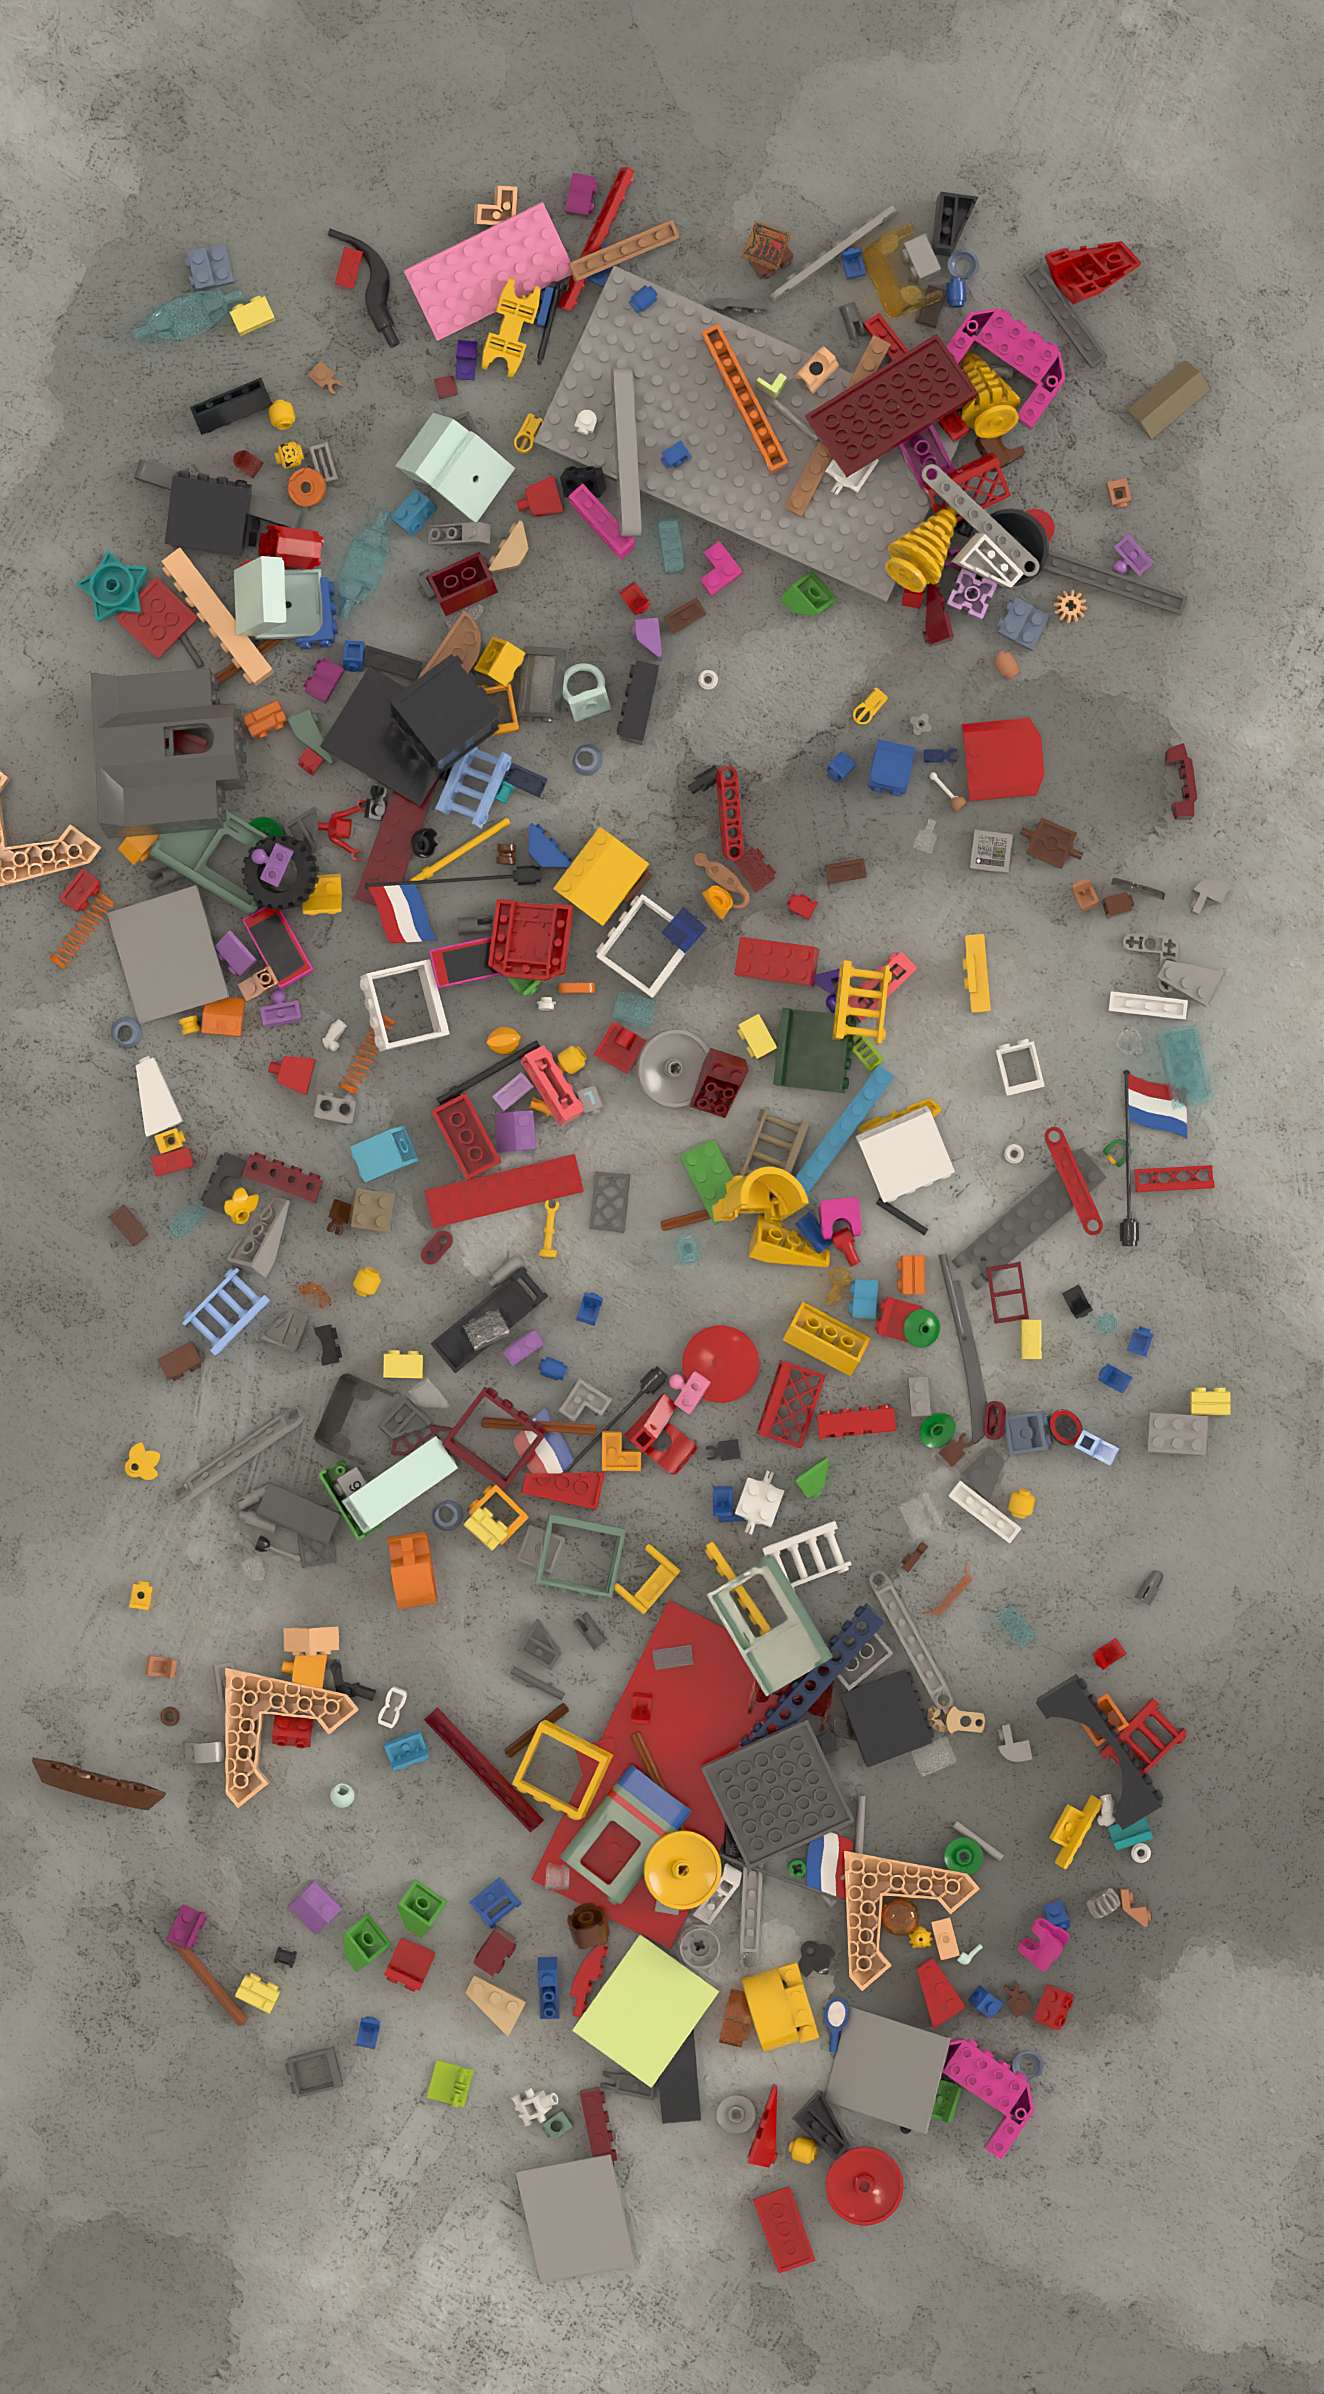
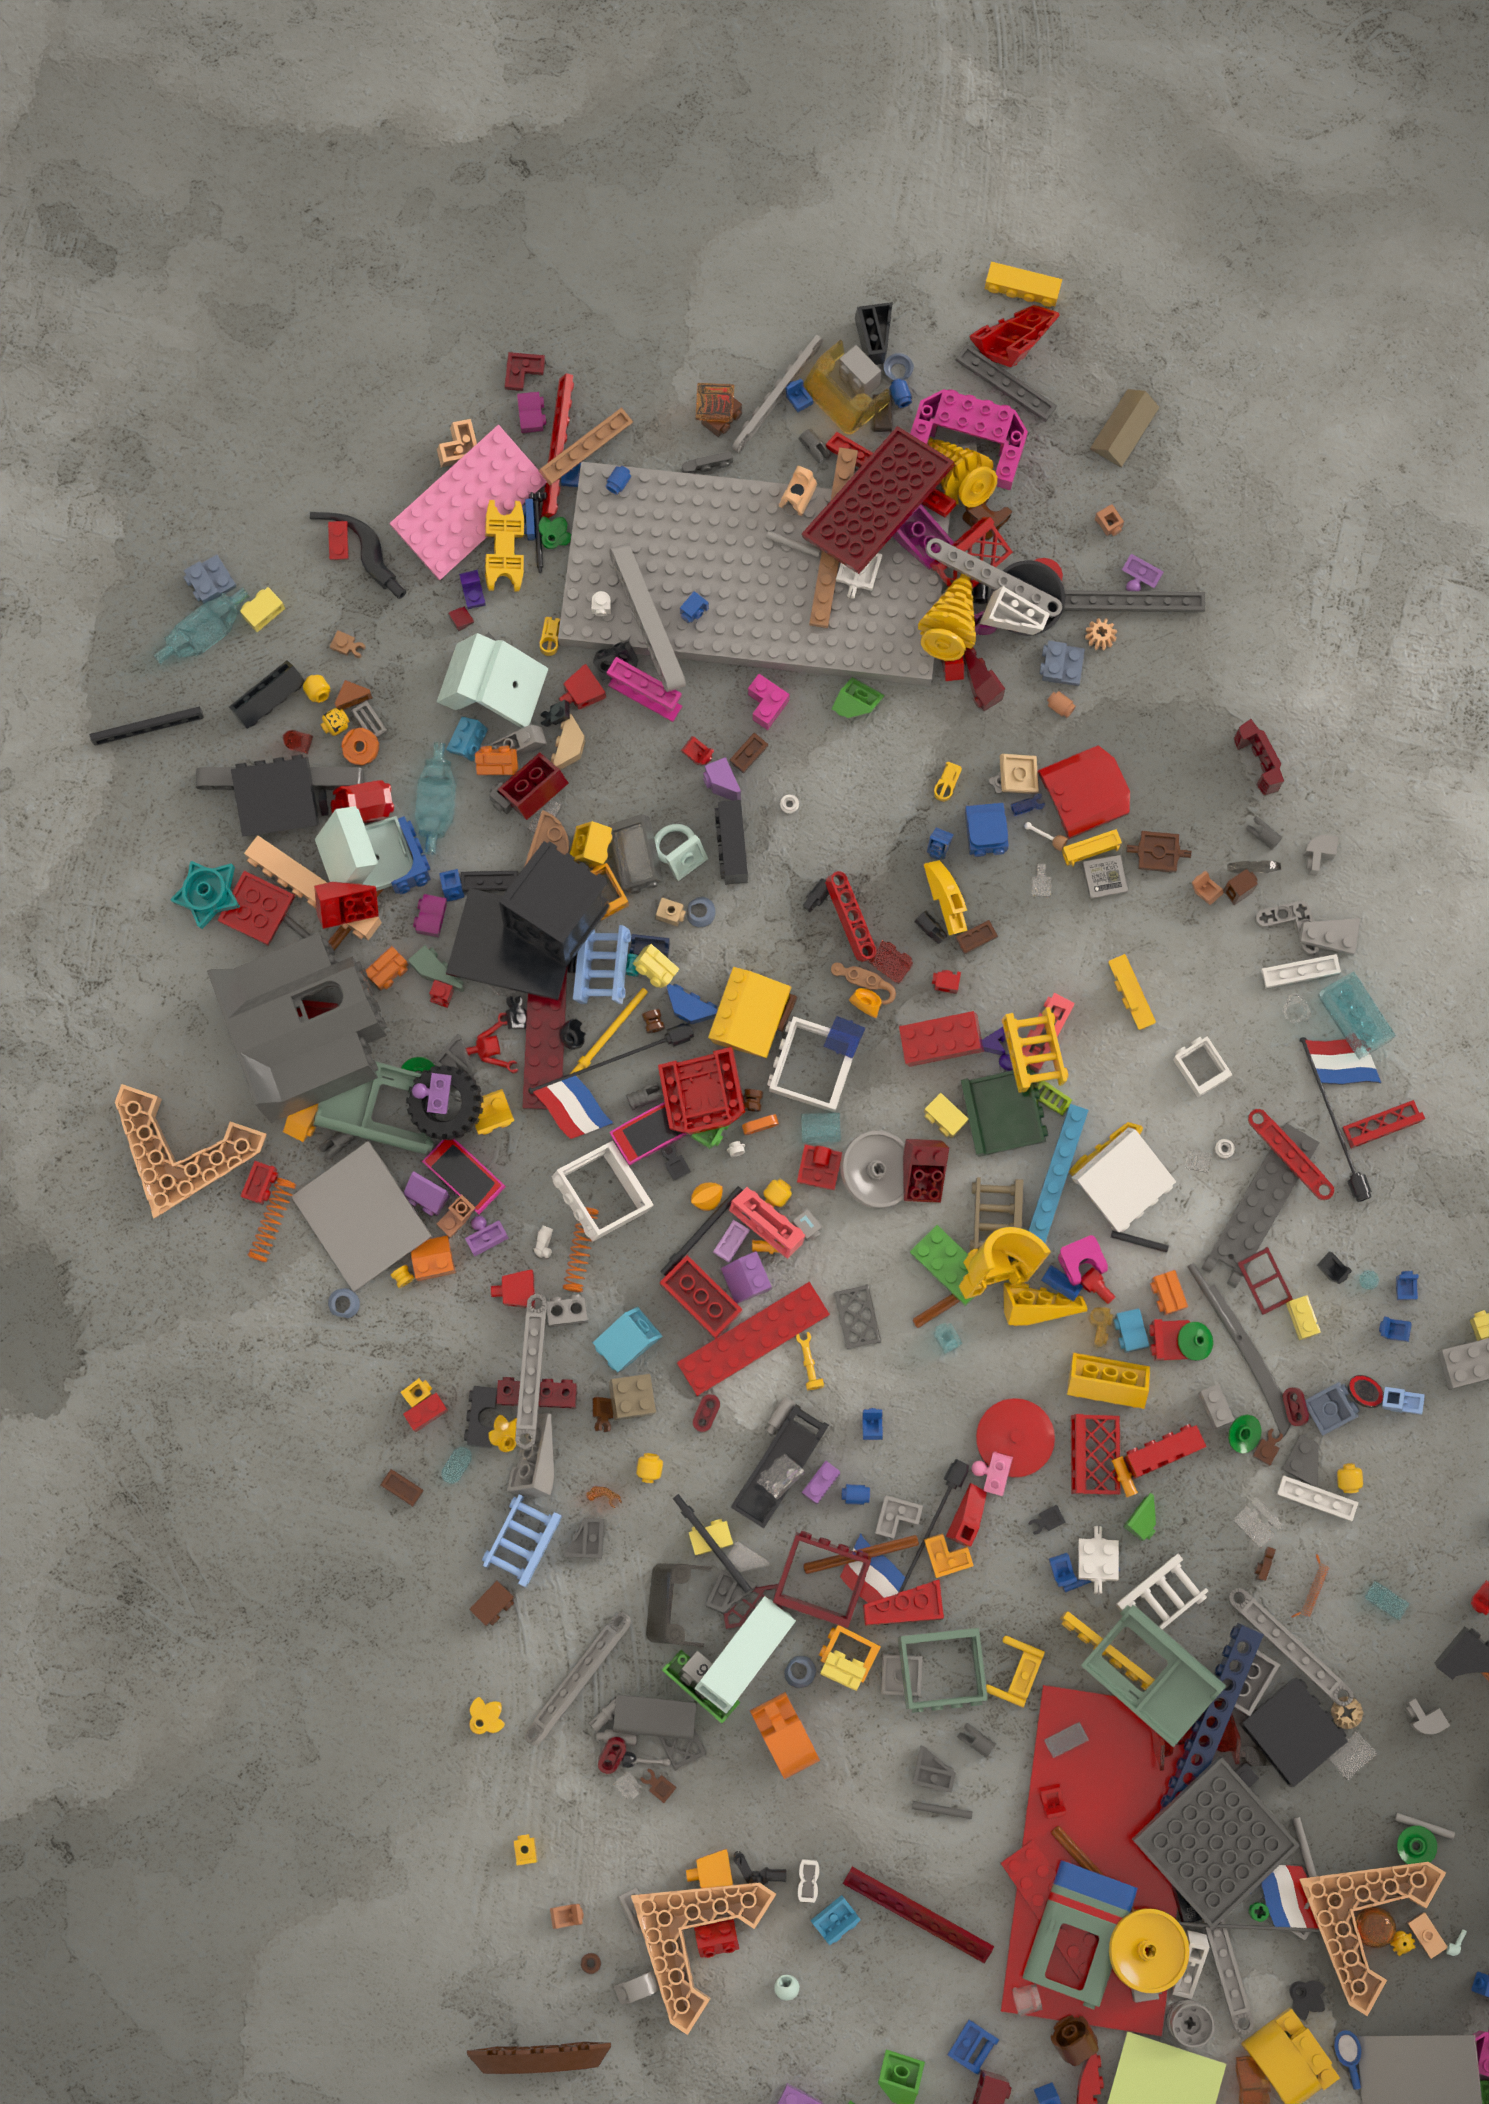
camera: 15 degrees left, 10 degrees down
(98, 399) = (146, 726): none -> black tile
(156, 1099) = (393, 1360): white slope -> none
(243, 647) = (345, 903): none -> red slope
(249, 1534) = (612, 1753): none -> dark red plate
(283, 1156) = (531, 1372): none -> light grey plate
(284, 1578) = (660, 1787): none -> reddish brown plate
(311, 1640) = (706, 1839): light nougat brick -> none
(313, 432) = (351, 695): none -> dark orange slope
(327, 1337) = (628, 1532): black brick -> none
(389, 1336) = (688, 1512): none -> black bar
(435, 546) = (496, 761): none -> orange brick
(484, 1002) = (676, 1165): none -> black plate
(509, 518) = (558, 713): none -> black plate
(524, 801) = (655, 966): none -> light yellow brick
(527, 1737) = (956, 1857): reddish brown axle -> none
(557, 751) = (670, 912): none -> tan brick
(567, 325) = (555, 530): none -> green plate
(575, 966) = (752, 1100): none -> reddish brown wheel
(577, 1743) = (1003, 1857): yellow window -> none
(584, 141) = (519, 365): none -> dark red plate
(671, 545) = (715, 693): clear light blue beam -> none
(678, 1453) = (1004, 1538): red piece -> none
(744, 399) = (741, 537): orange brick -> none
(774, 390) = (761, 521): yellowish green panel -> none
(804, 847) = (931, 927): none -> black hinge
(810, 1433) = (1124, 1476): none -> light orange pin
(830, 815) = (947, 892): none -> yellow slope
(938, 1992) = (1441, 1993): red wedge -> none
(941, 722) = (1019, 773): none -> tan tile
(953, 1720) = (1359, 1712): tan piece -> none
(976, 606) = (1015, 643): lavender brick -> none
(987, 818) = (1091, 847): none -> yellow container
(1108, 1148) = (1316, 1121): green piece -> none
(1117, 217) = (1023, 284): none -> yellow brick
(1163, 861) = (1267, 836): none -> dark grey hinge

